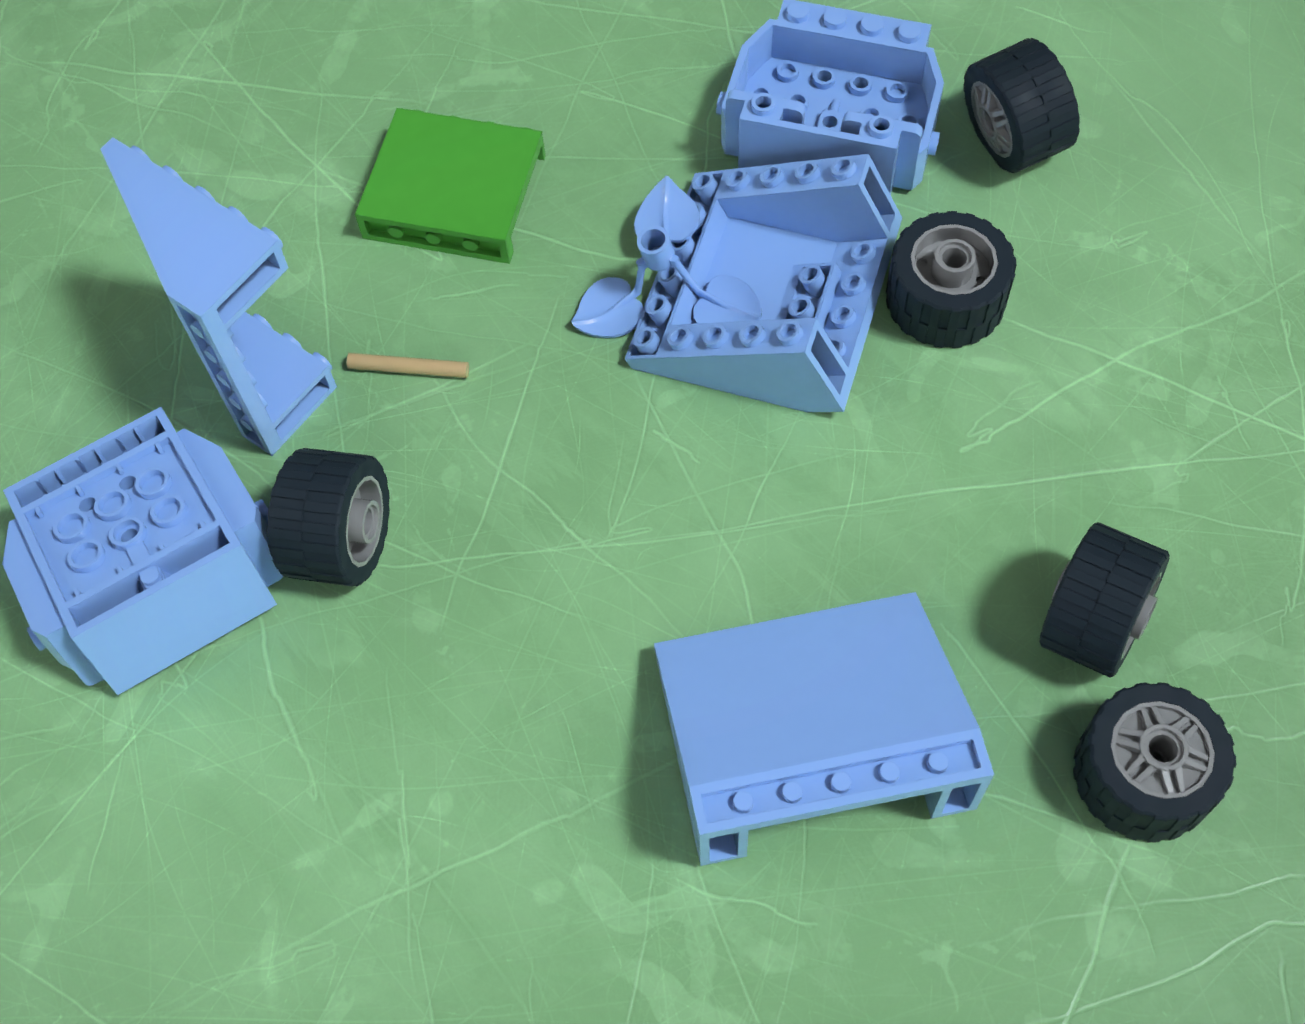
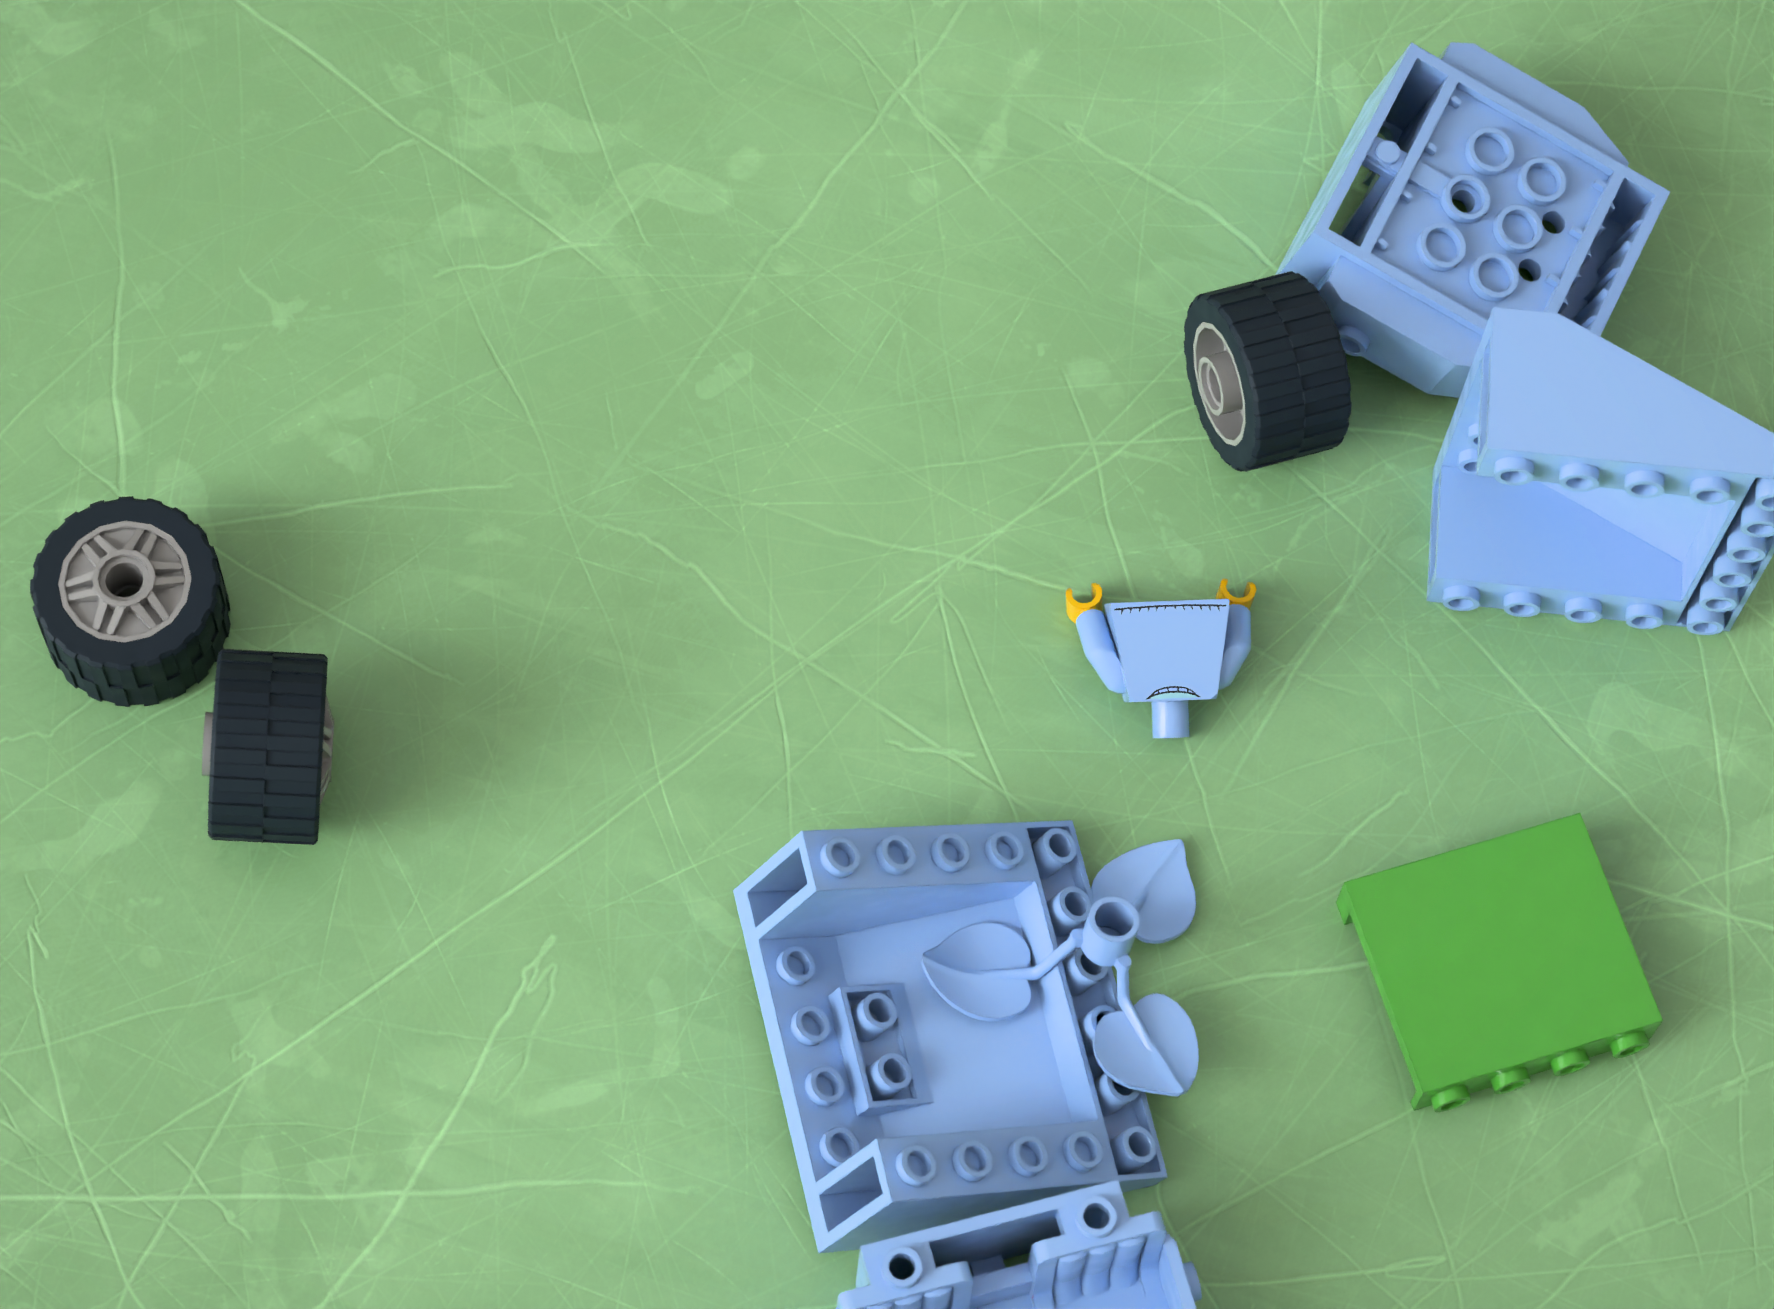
camera: 140 degrees right, 5 degrees up
(408, 365) = (1353, 669): tan bar -> none
(507, 410) = (1166, 649): none -> light blue torso
(818, 720) = (543, 442): light blue slope -> none
(950, 279) = (680, 1105): black wheel -> none

